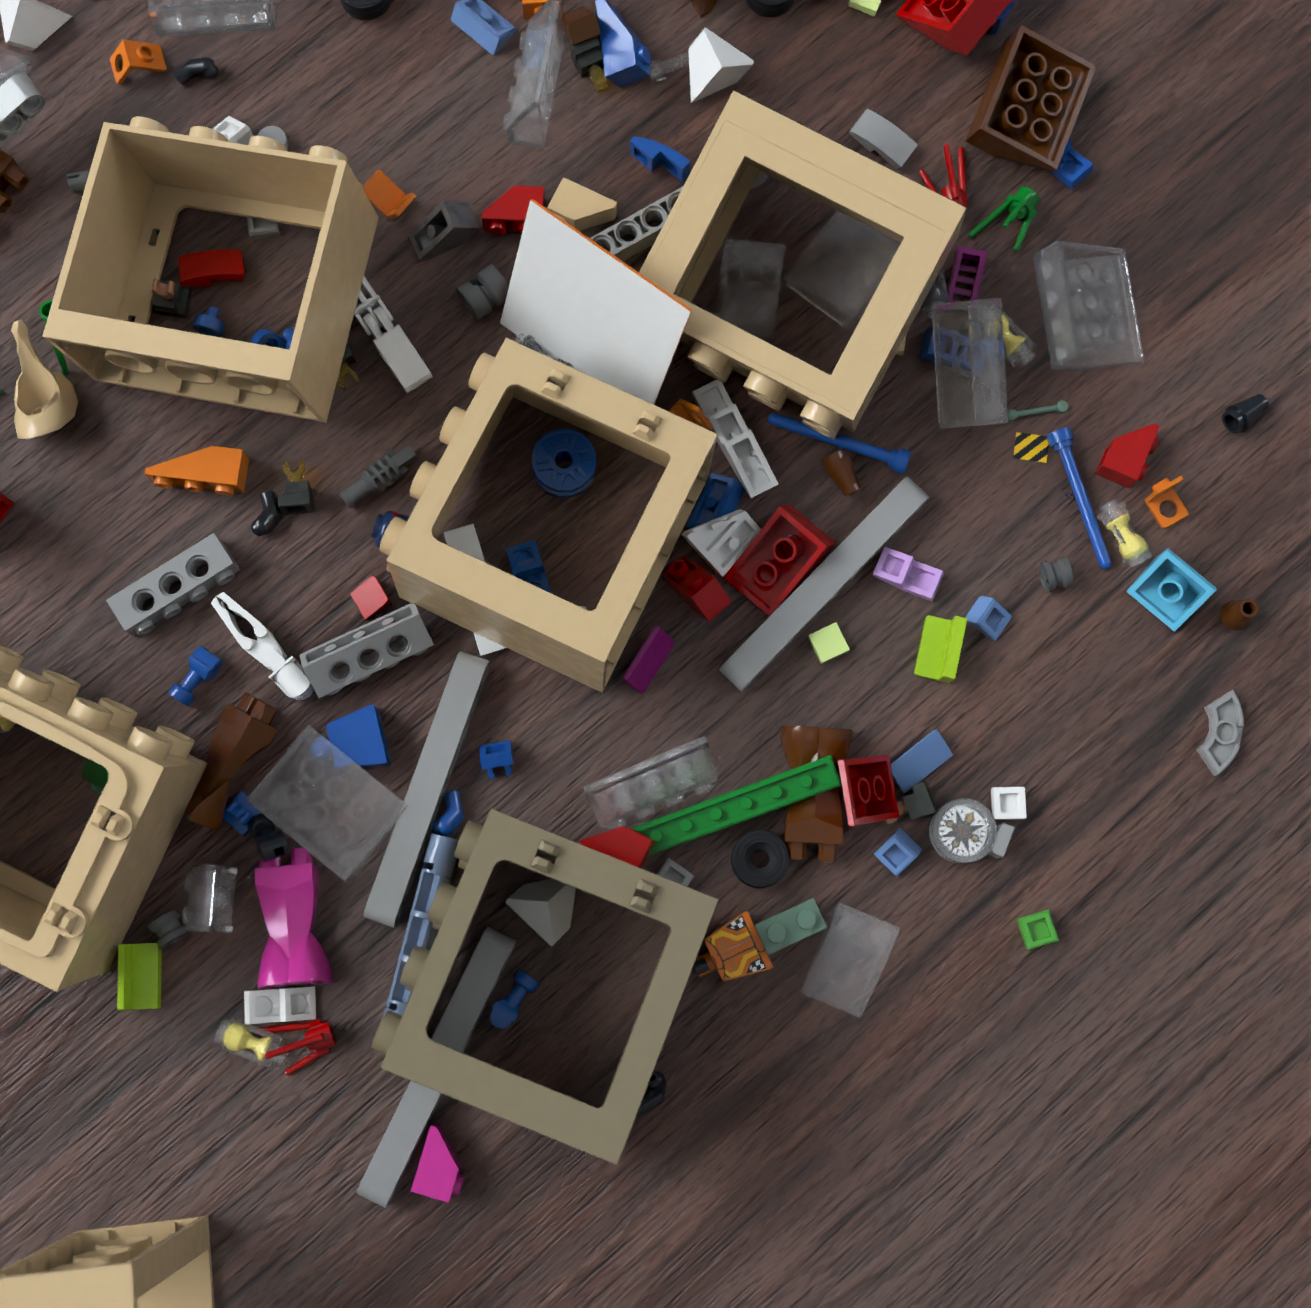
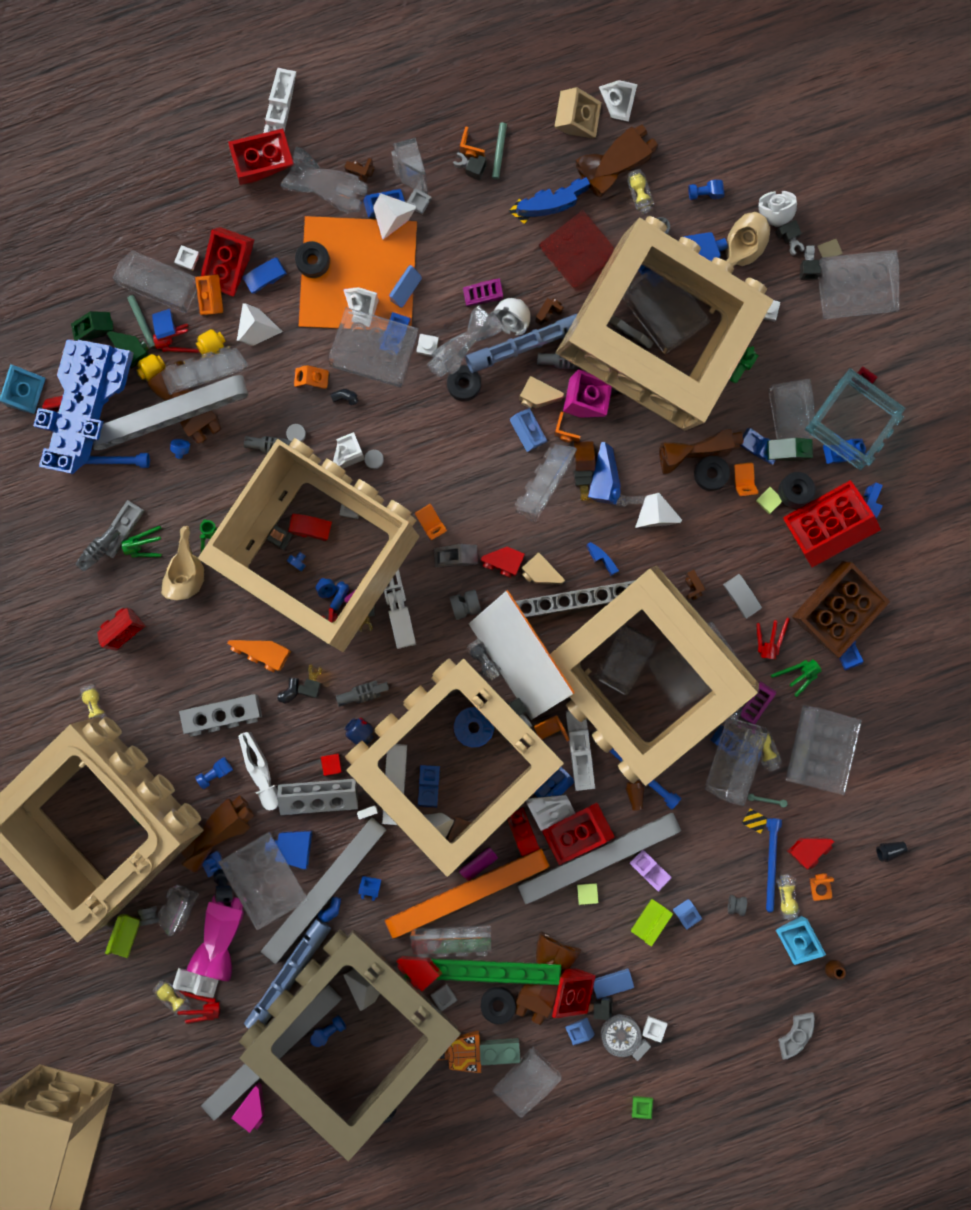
camera: 25 degrees right, 5 degrees up
(451, 645) = (367, 812): none -> white tile
(646, 710) = (466, 893): none -> orange beam

